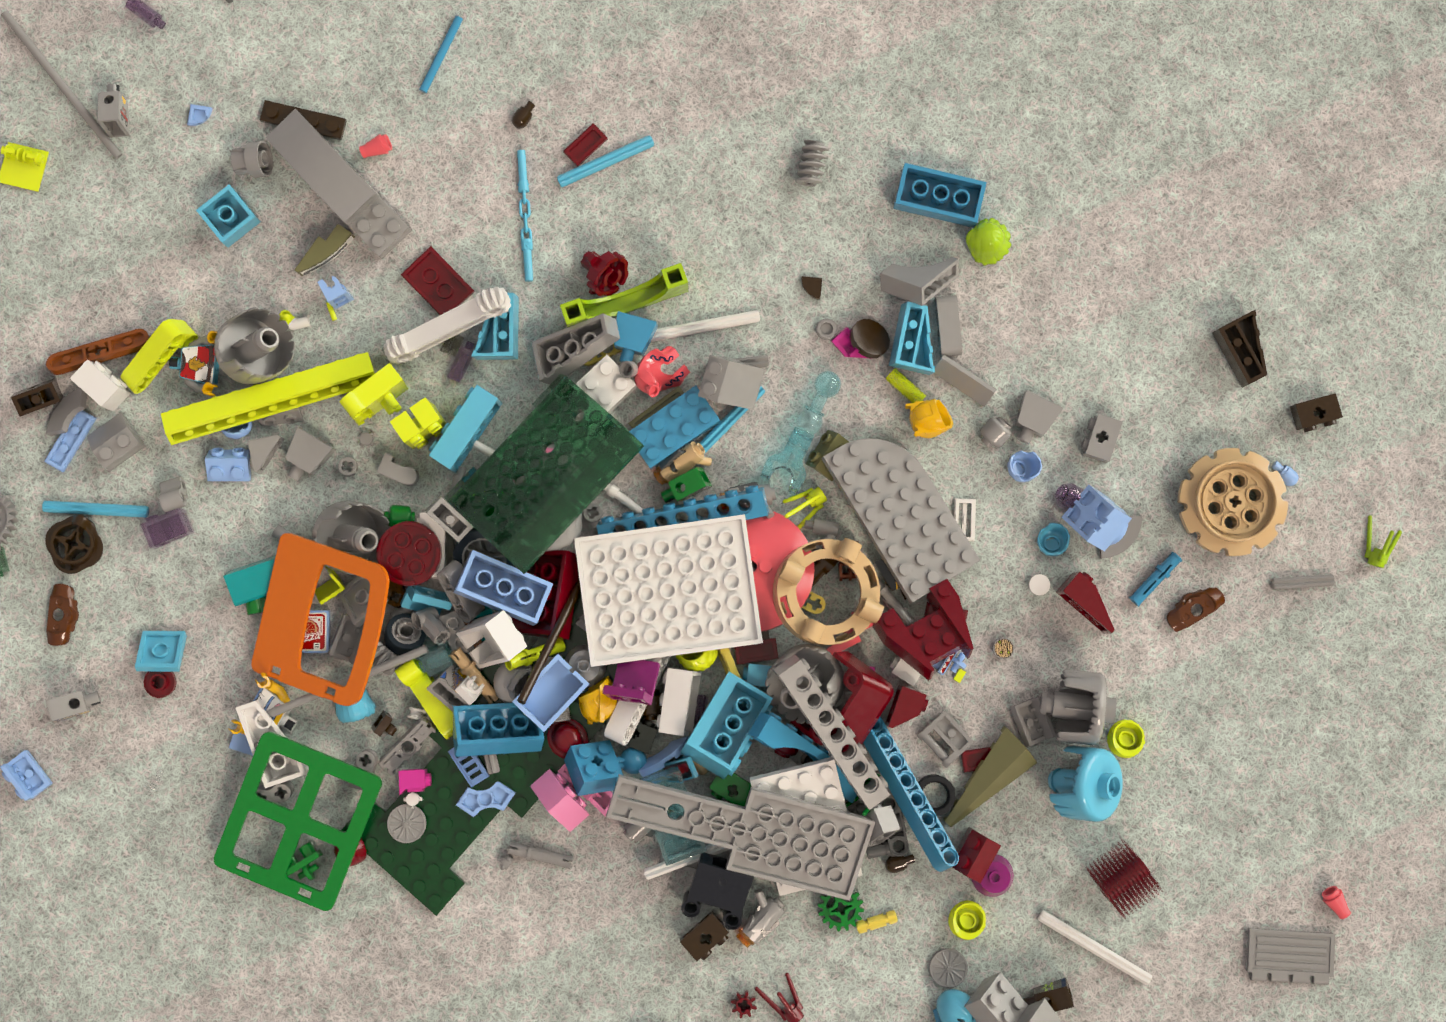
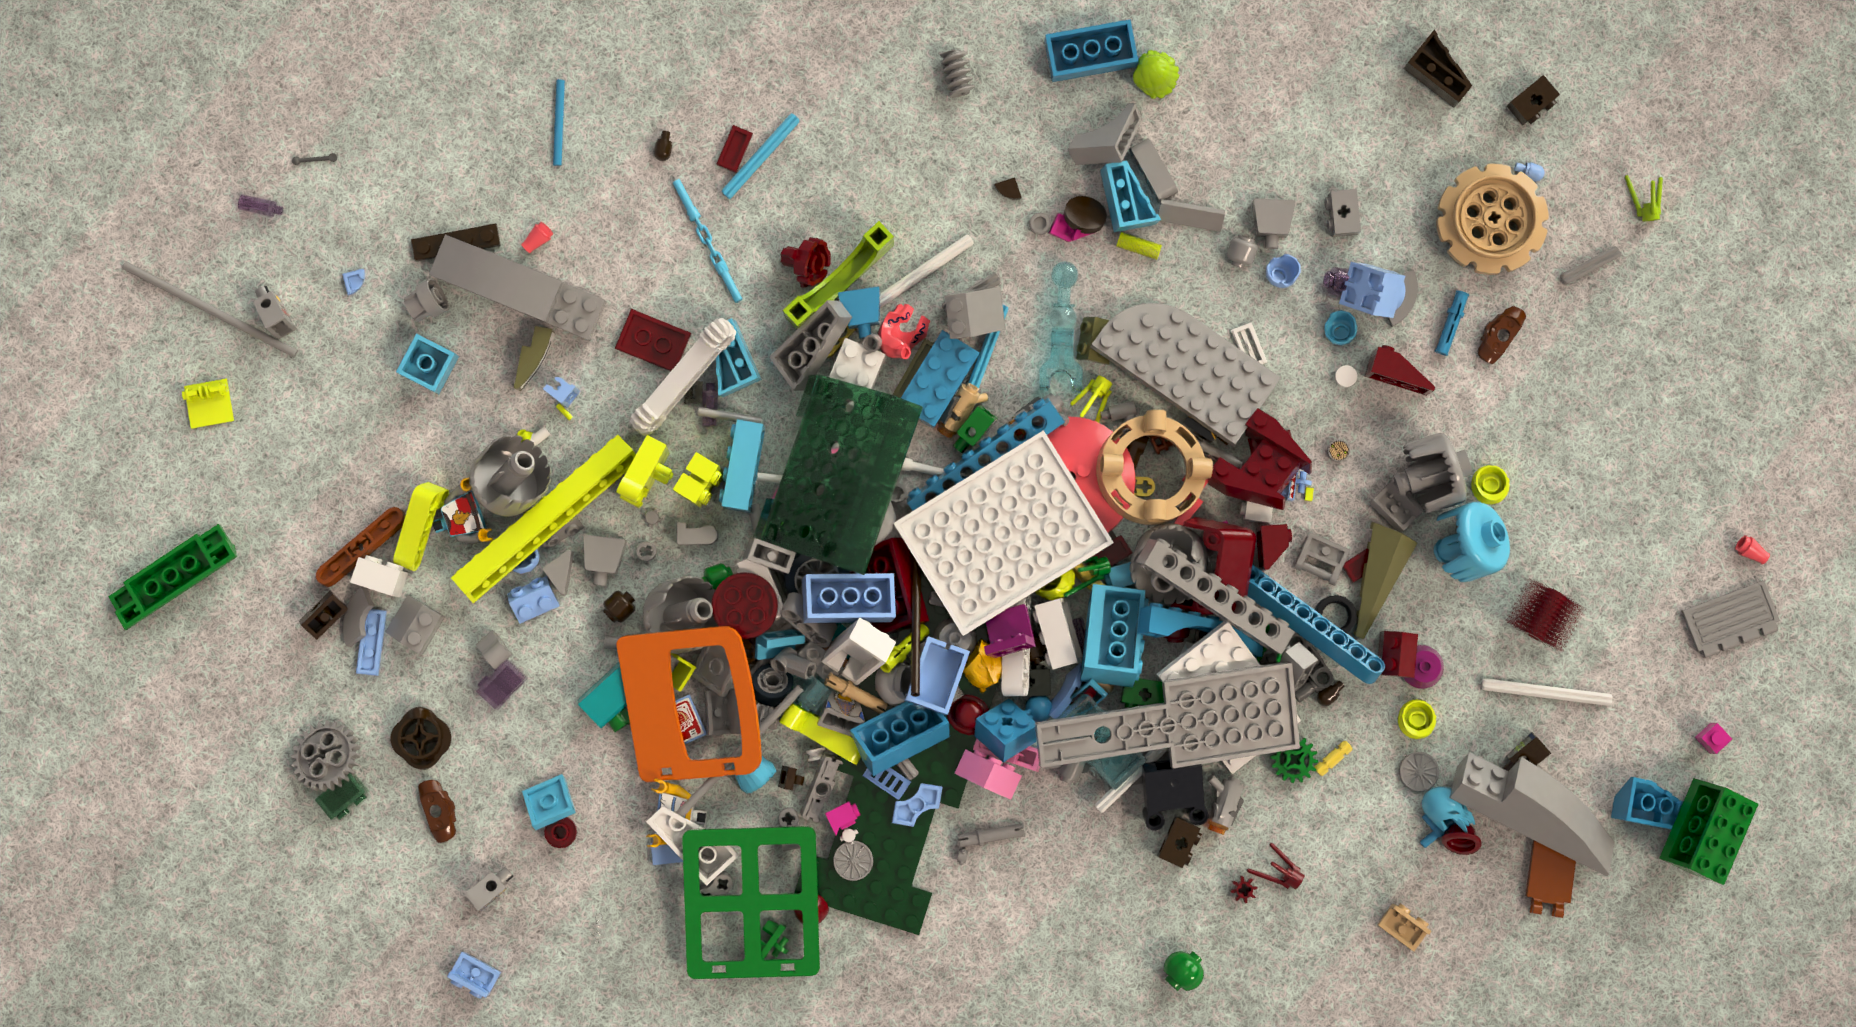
camera: 20 degrees left, 0 degrees up
(95, 509) = (425, 696): medium azure axle -> none
(301, 504) = (619, 606): none -> dark brown head
(469, 689) = (857, 708): white tile -> none
(473, 378) = (723, 415): none -> light grey bar
(740, 658) = (1097, 567): none -> green plant
(929, 418) = (1174, 265): yellow helmet -> none

